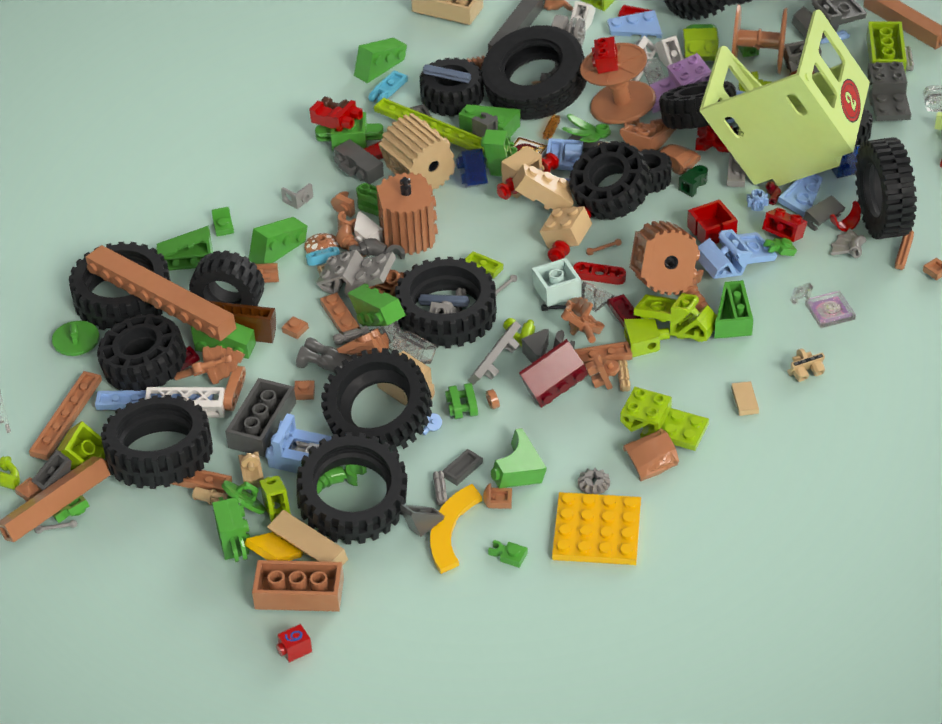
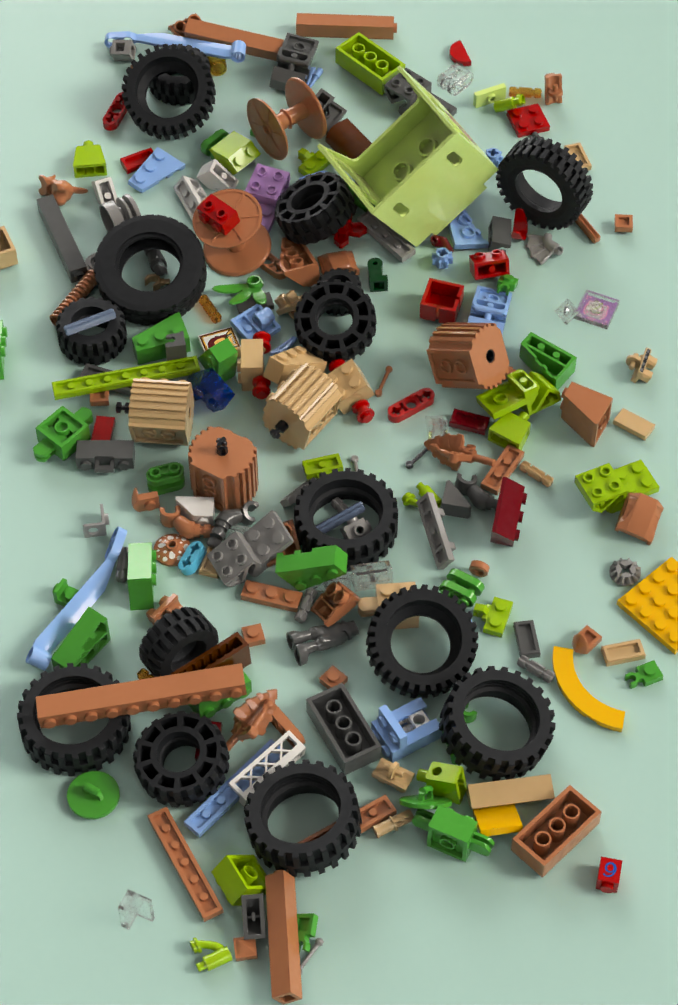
camera: 50 degrees left, 10 degrees up
(222, 230) = (60, 626): none -> light blue piece
(335, 114) = (50, 426): red hips -> none
(388, 86) = (32, 368): medium azure hinge -> none
(421, 518) = (563, 702): dark grey slope -> none
(462, 436) = (494, 615): none -> lime hinge
(508, 212) = (301, 406): none -> tan piece
(515, 527) = (623, 652): none -> tan tile
(521, 466) = (569, 598): arch -> none
(556, 282) = (400, 437): light aqua brick -> none
(608, 369) = (529, 480): nougat hips -> none
(712, 361) = (586, 411): none -> nougat slope

